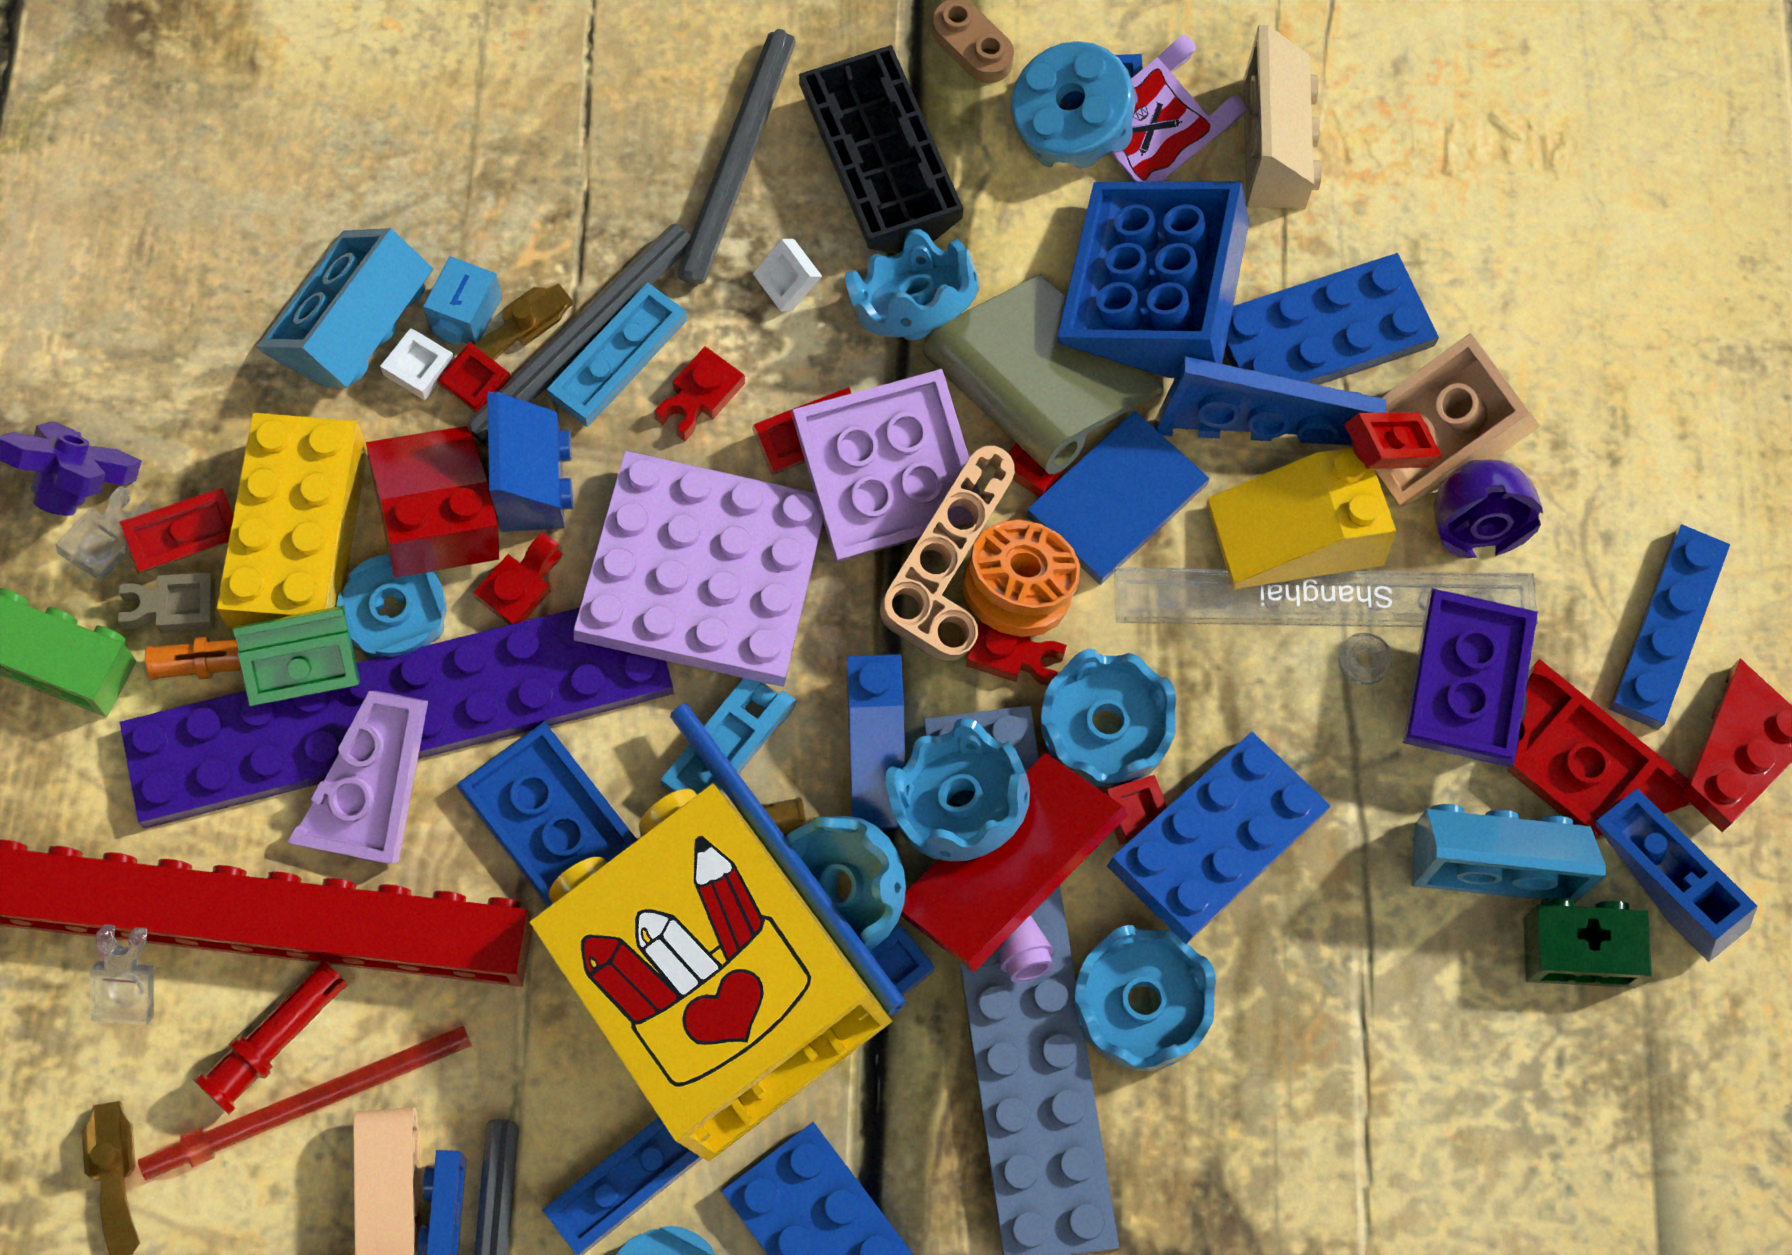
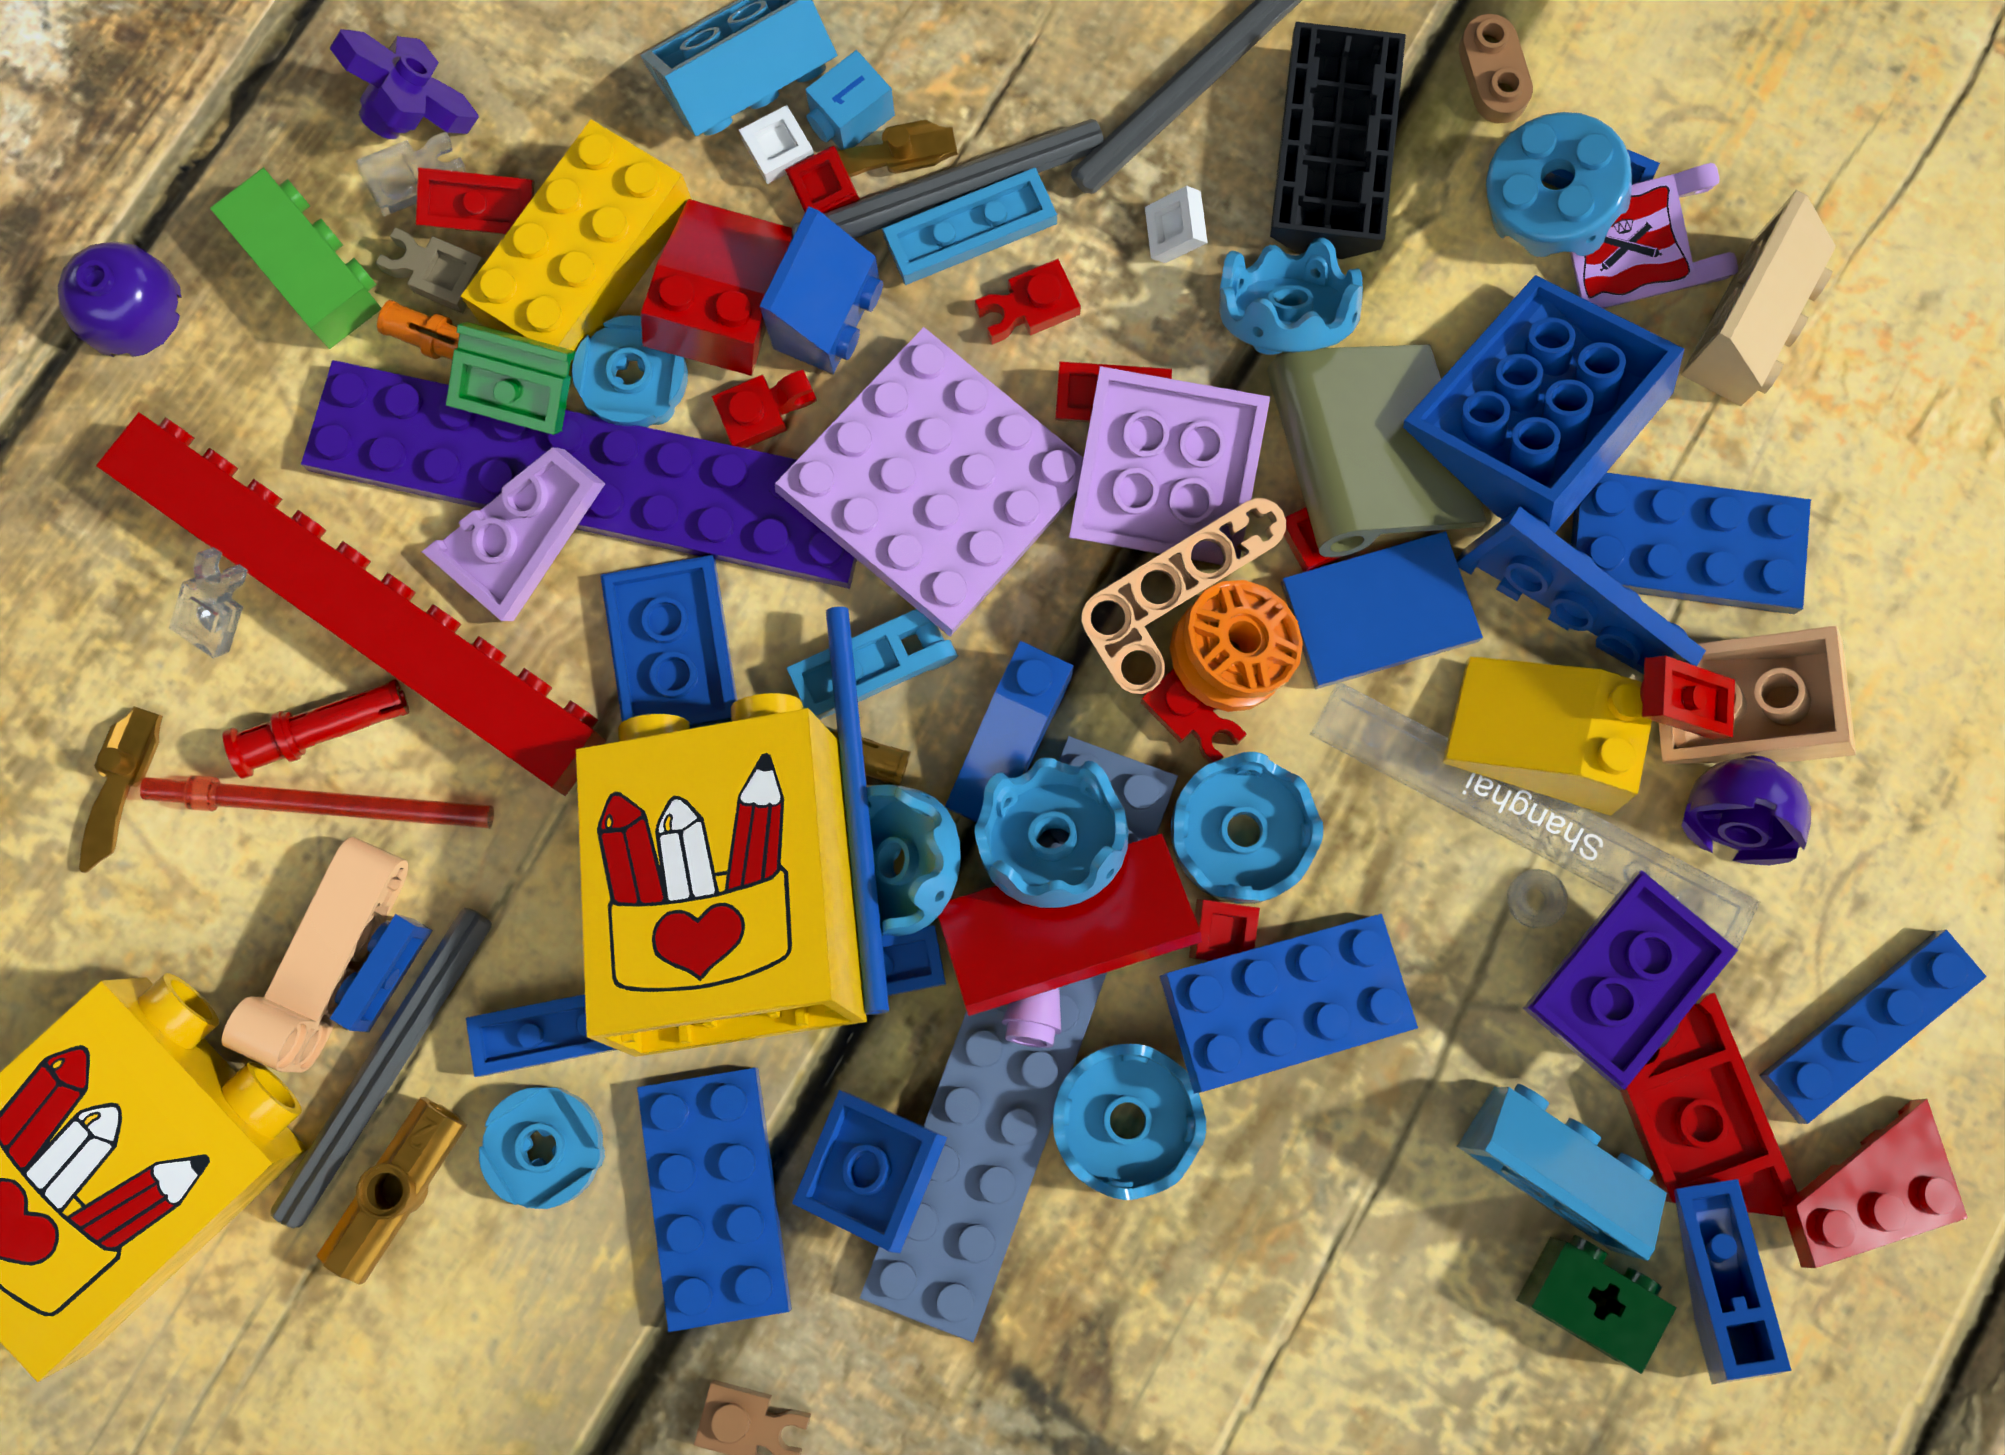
camera: 35 degrees right, 10 degrees up
(957, 1150) = (869, 1171): none -> blue plate

